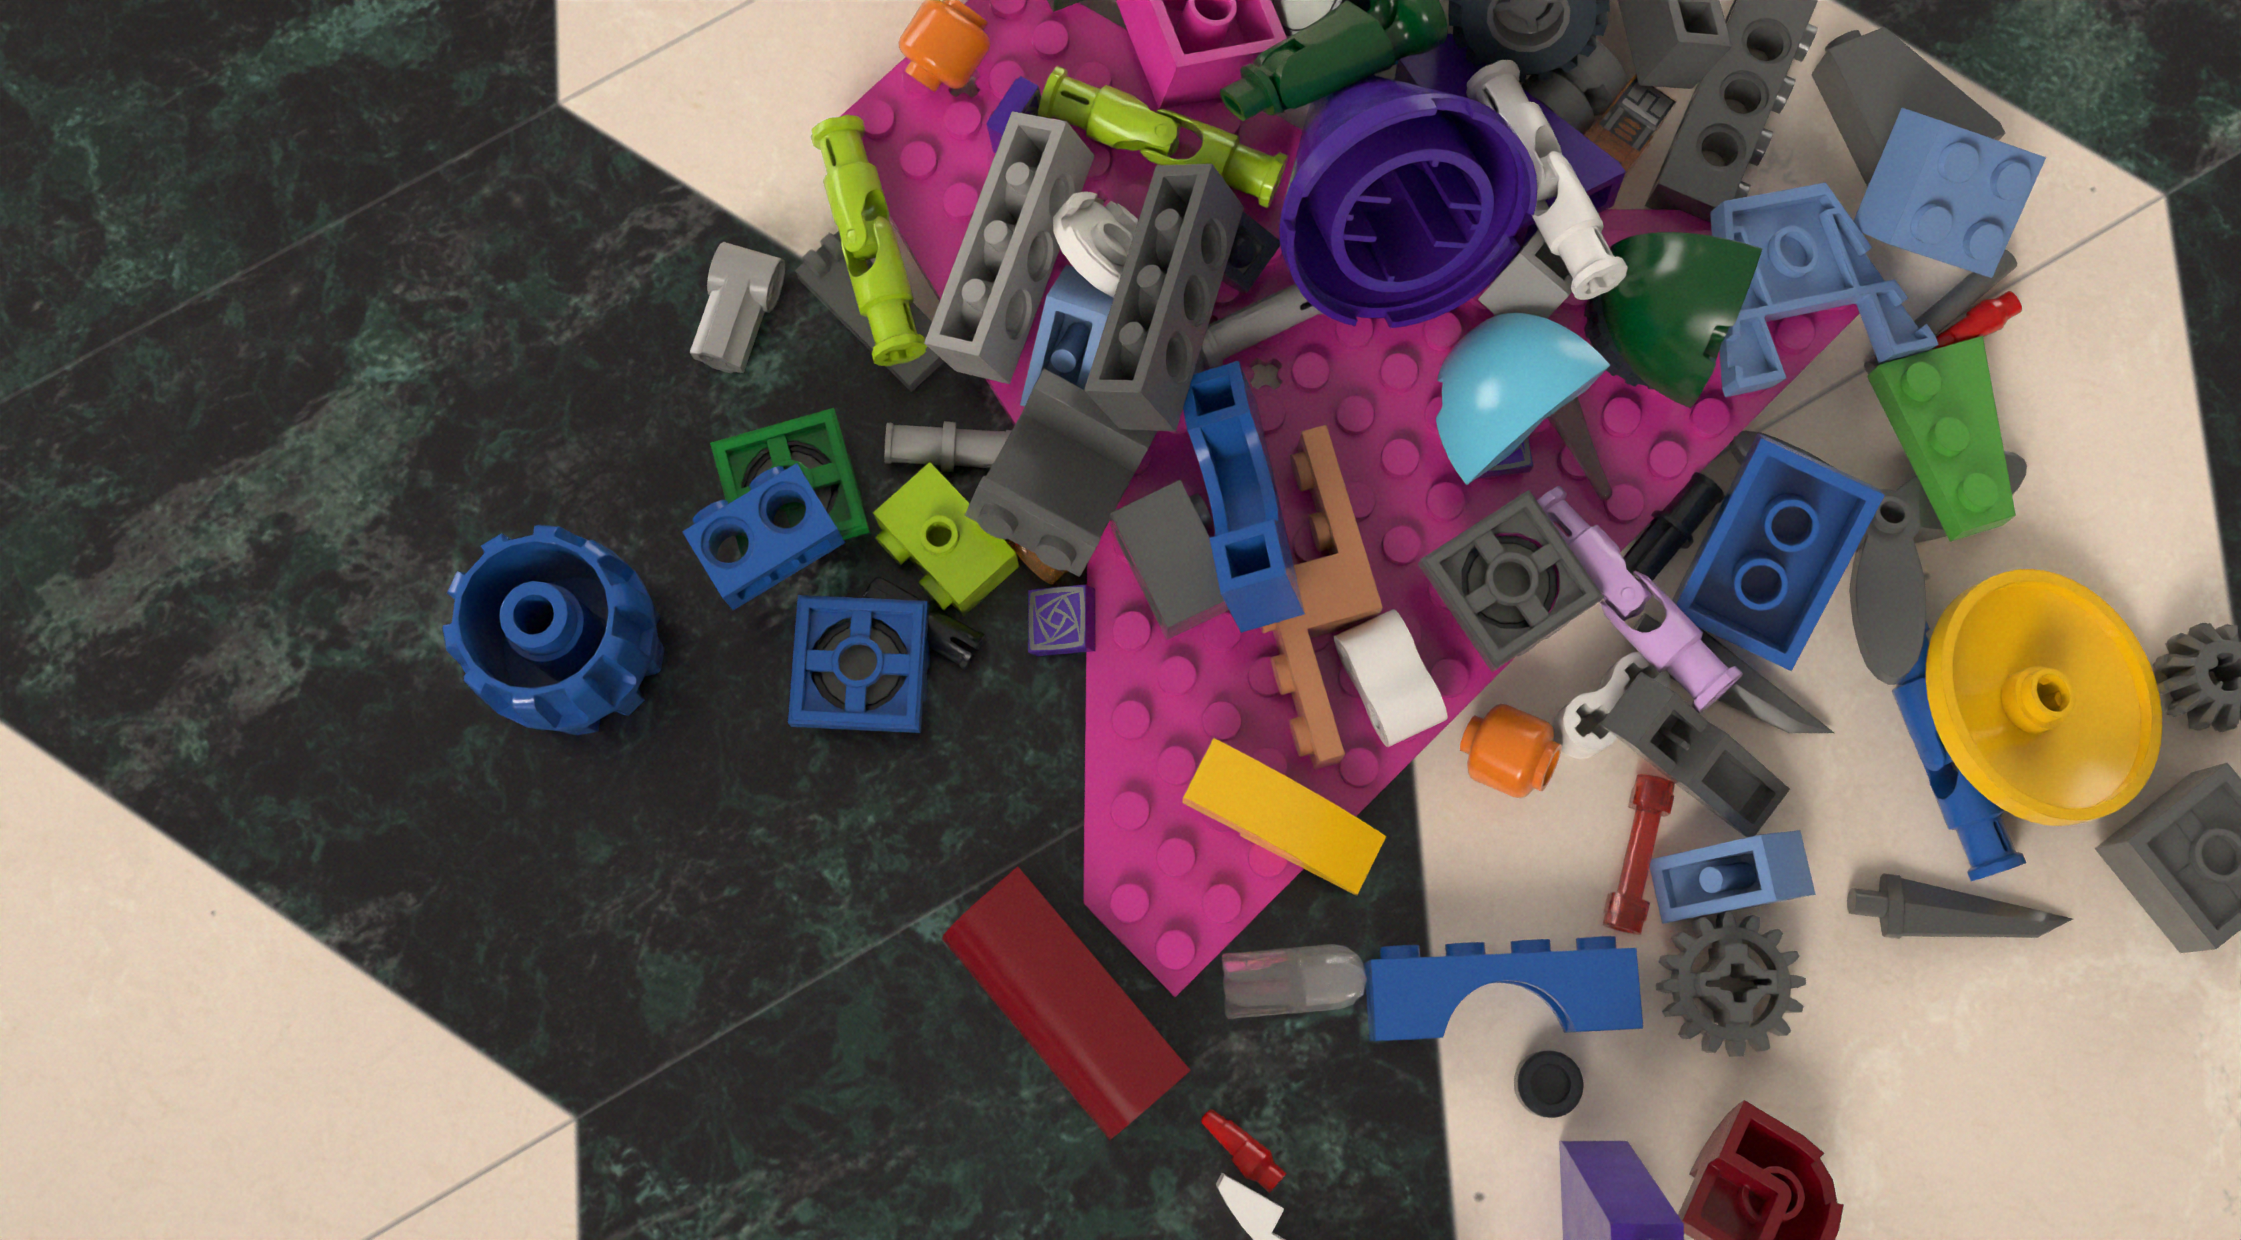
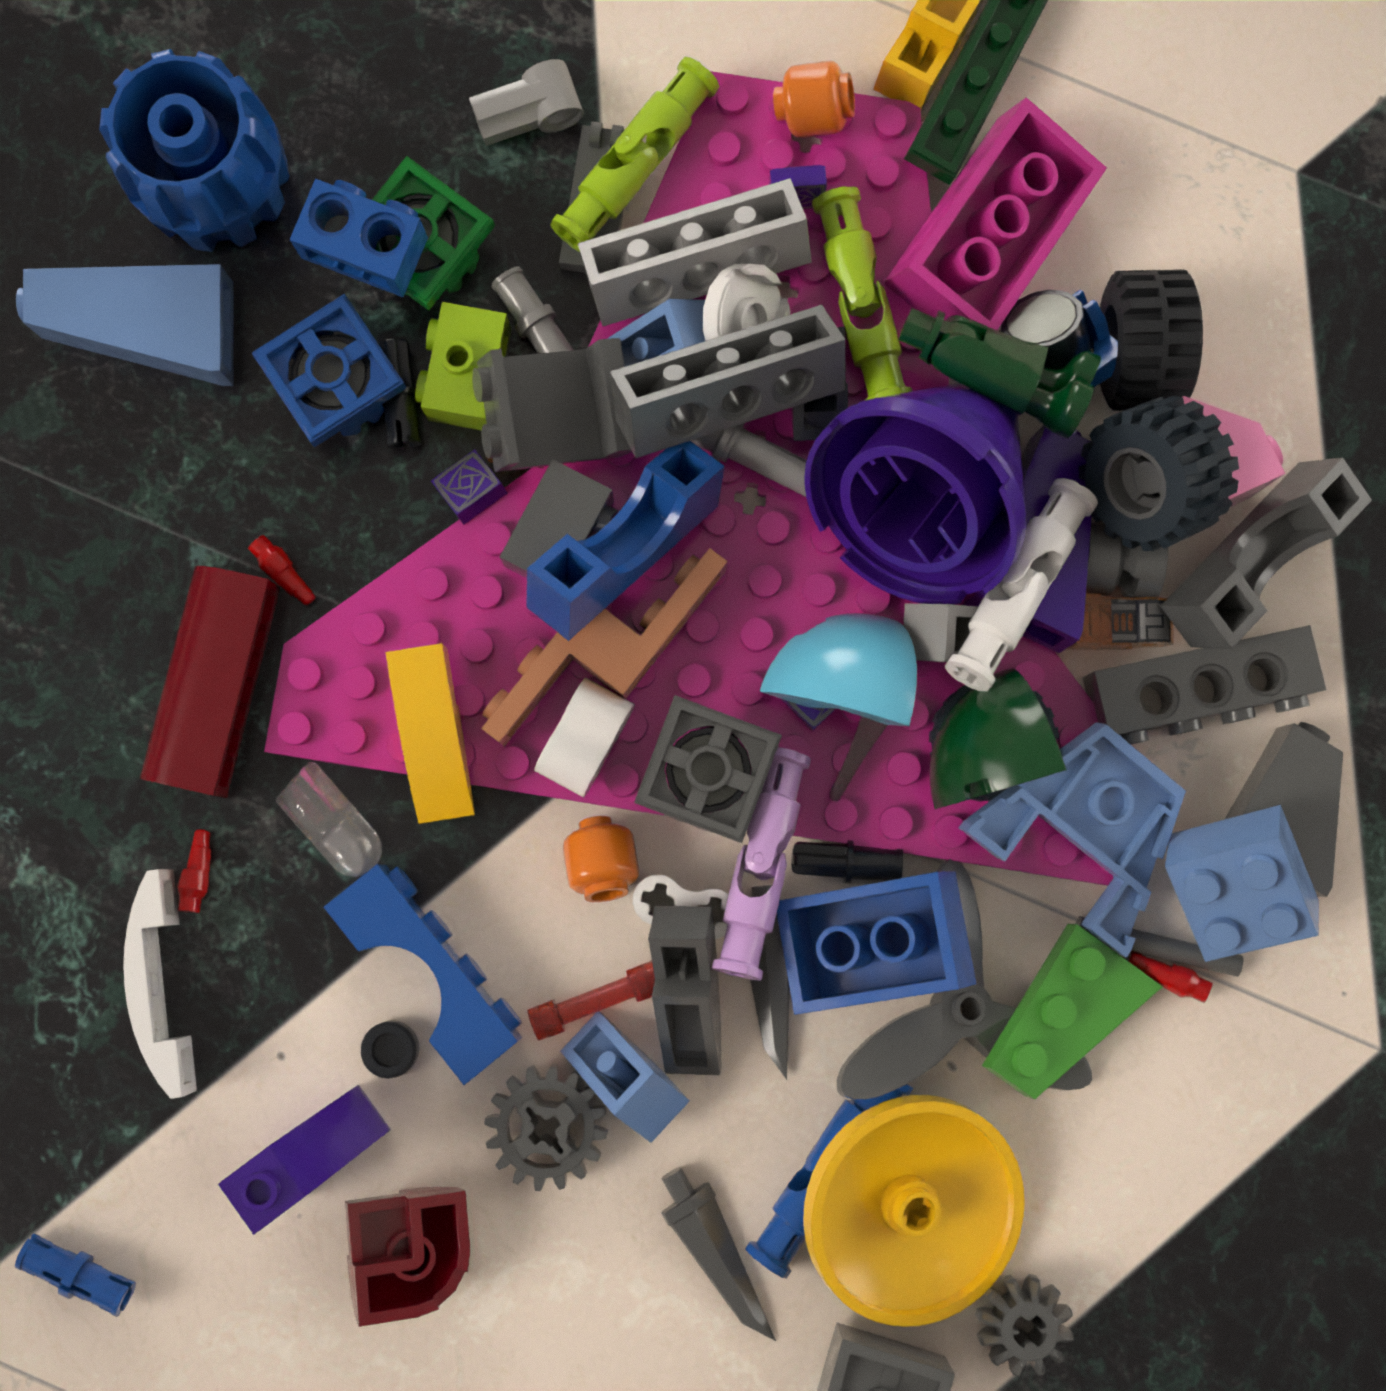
camera: 50 degrees right, 5 degrees up
(656, 811) = (140, 314): none -> medium blue slope
(1001, 856) = (279, 567): none -> red piece

